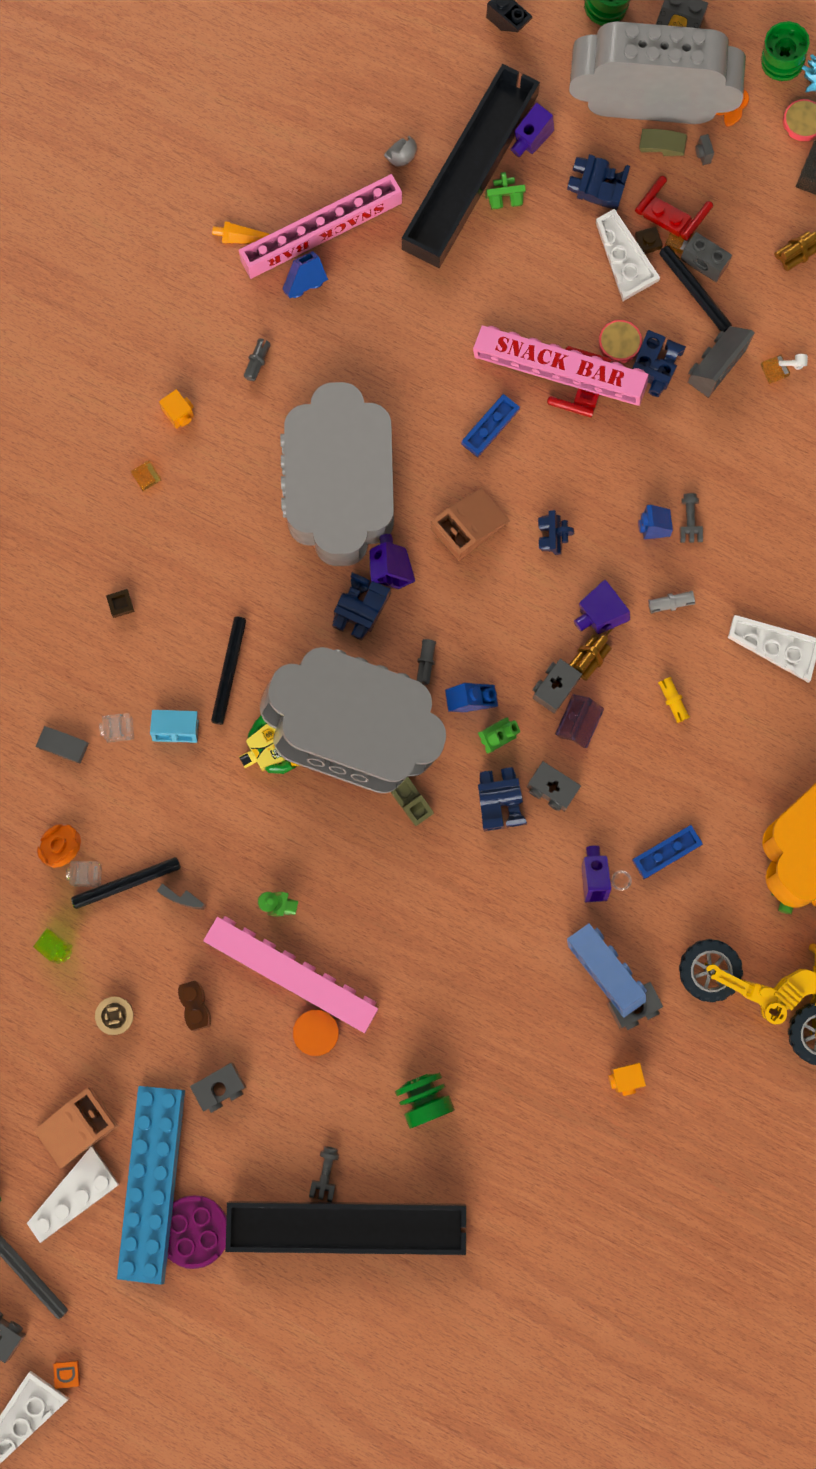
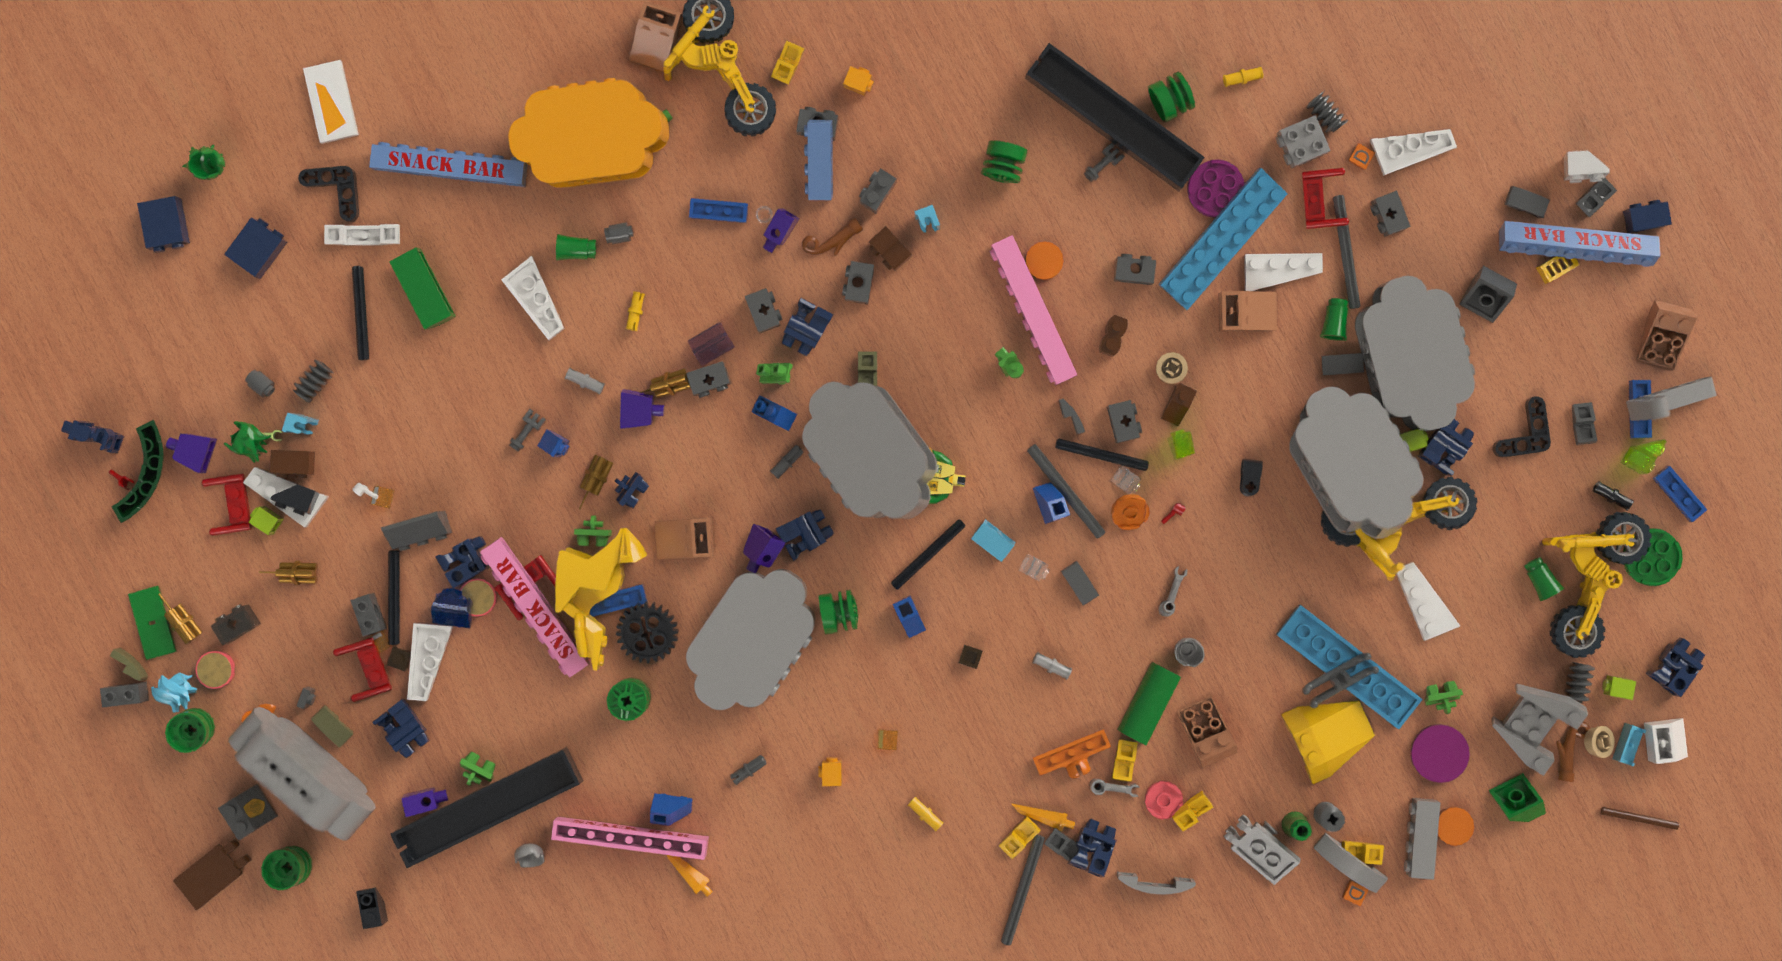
camera: 140 degrees left, 10 degrees up
(14, 884) = (1178, 509): none -> red hand
(35, 649) = (1052, 665): none -> light grey pin
(62, 433) = (925, 814): none -> yellow pin
(83, 985) = (1178, 404): none -> reddish brown slope
(85, 1294) = (1315, 199): none -> red plate
(112, 925) = (1120, 431): none -> dark grey brick
(131, 1393) = (1326, 113): none -> dark grey piece
(136, 823) = (1066, 491): none -> dark grey axle
(136, 1343) = (1302, 142): none -> light grey brick
(143, 799) = (1051, 503): none -> blue slope
(206, 599) = (909, 616): none -> blue slope
(245, 1368) = (1243, 76): none -> yellow pin
(277, 553) = (838, 611): none -> green wheel
(301, 1294) = (1175, 95): none -> green wheel
(410, 355) = (638, 693): none -> green wheel
(453, 401) = (663, 627): none -> black gear
(462, 988) = (927, 215): none -> medium azure hinge
(475, 934) = (890, 248): none -> reddish brown brick
(481, 893) = (862, 293): none -> dark grey brick
(527, 982) = (878, 190): none -> dark grey brick
(530, 422) = (588, 579): none -> yellow piece
(532, 906) = (837, 240): none -> dark orange plant
(565, 463) = (601, 535): none -> bright green hips
(594, 522) = (595, 476): none -> pearl gold piece
(635, 313) = (451, 609): none -> clear blue slope
(709, 1047) = (788, 62): none -> yellow slope
(745, 761) = (618, 233): none -> dark grey brick
(775, 717) = (574, 248): none -> green plant

